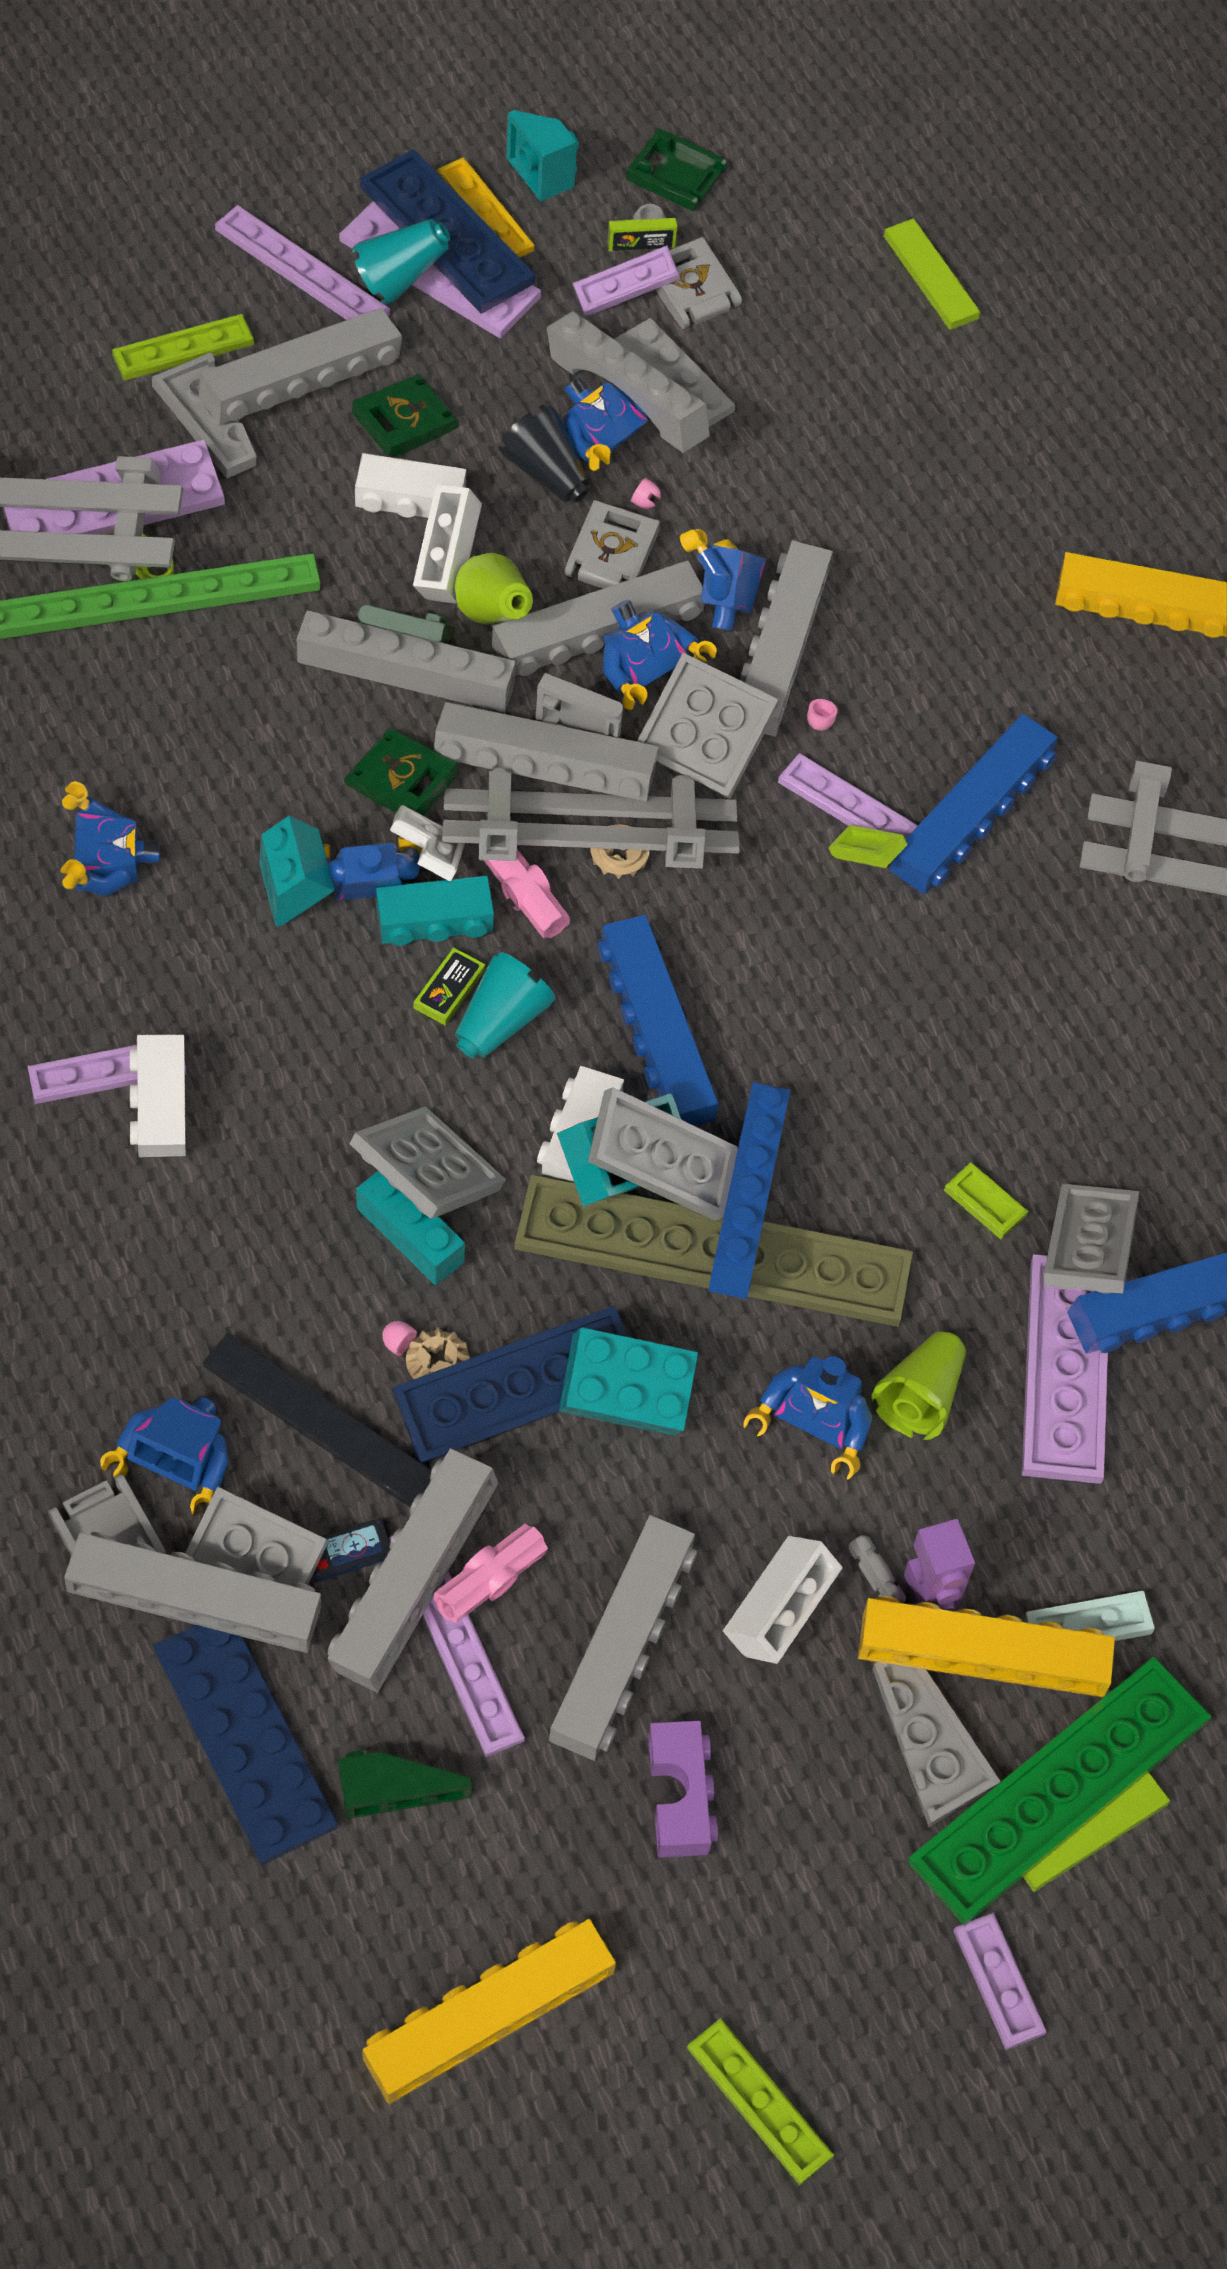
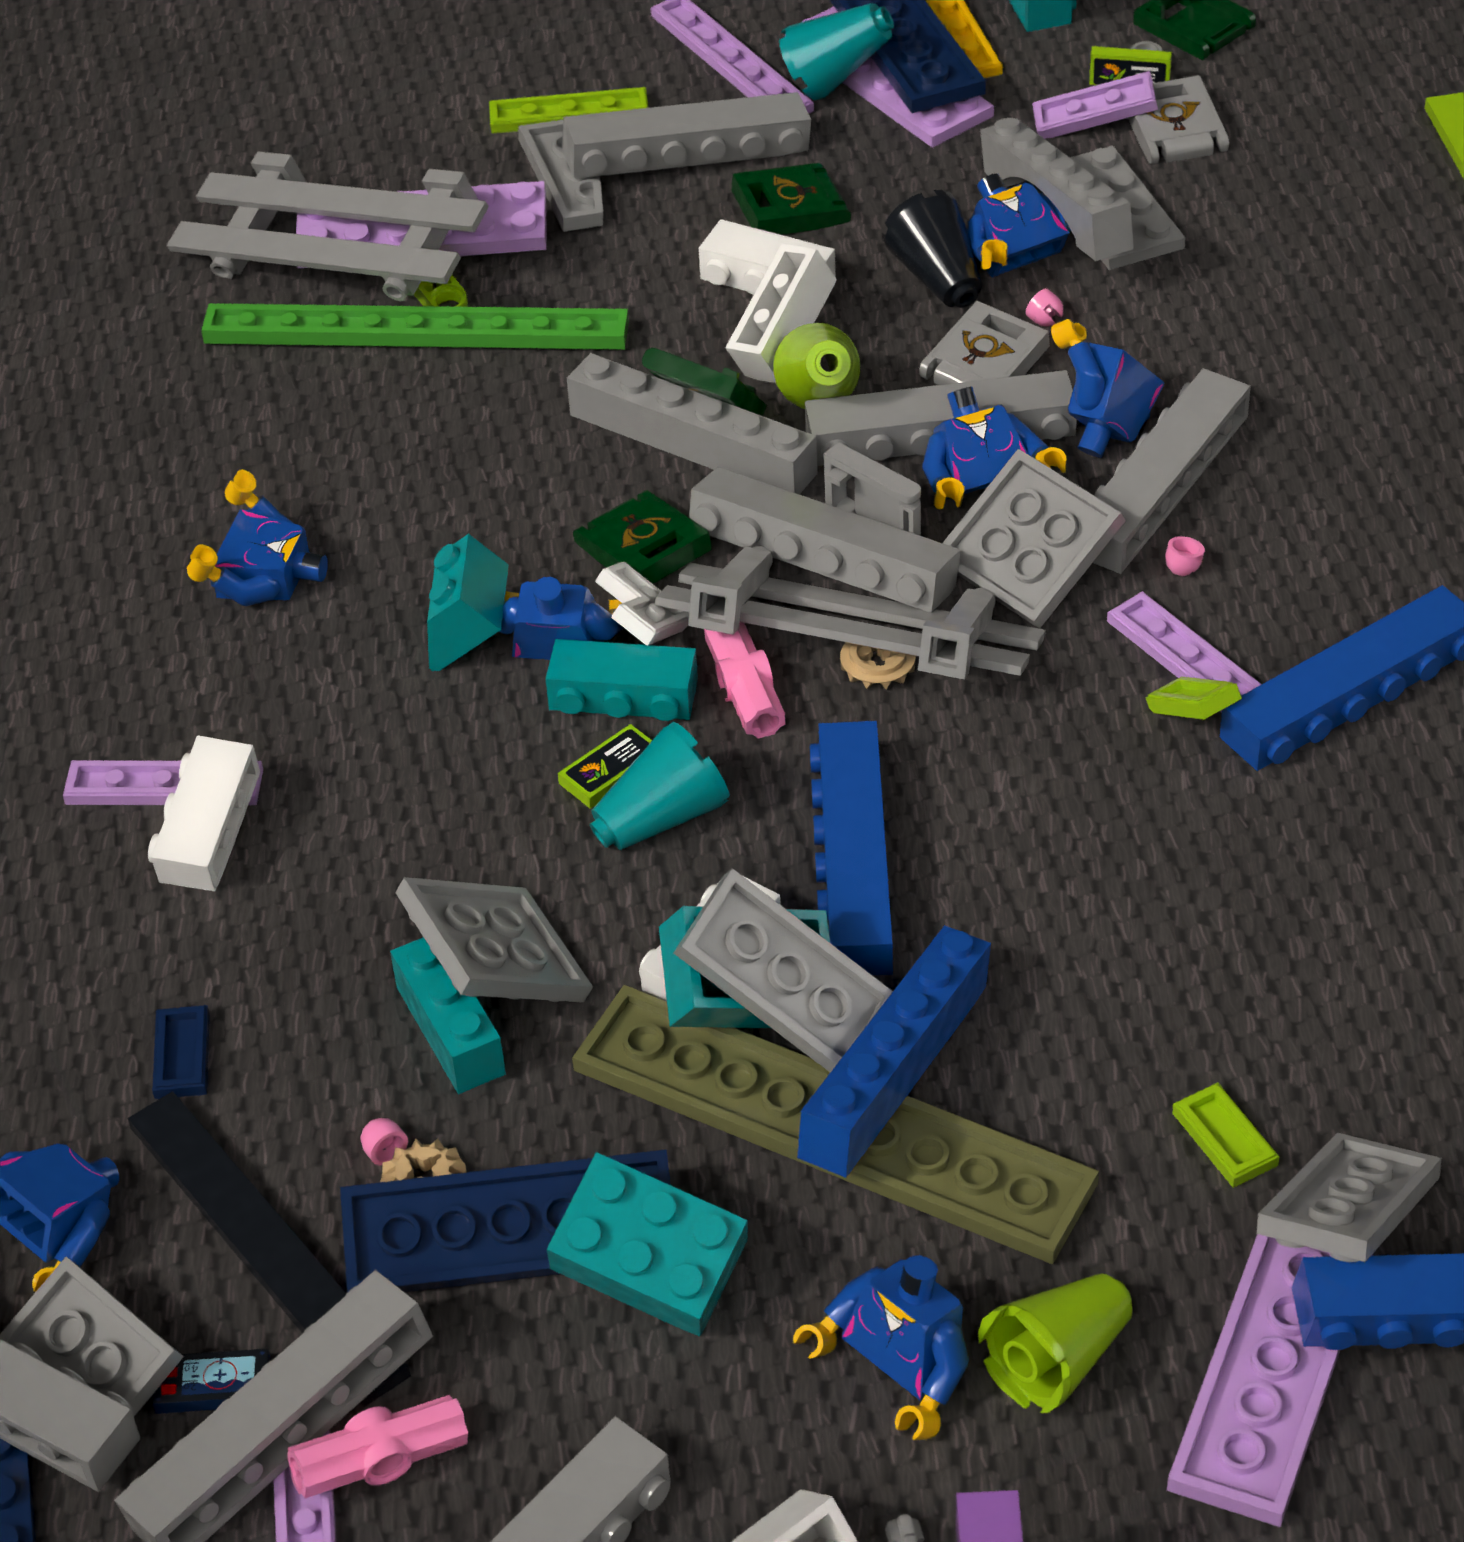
camera: 25 degrees right, 15 degrees down
(218, 1297) = (181, 1051): none -> dark blue tile

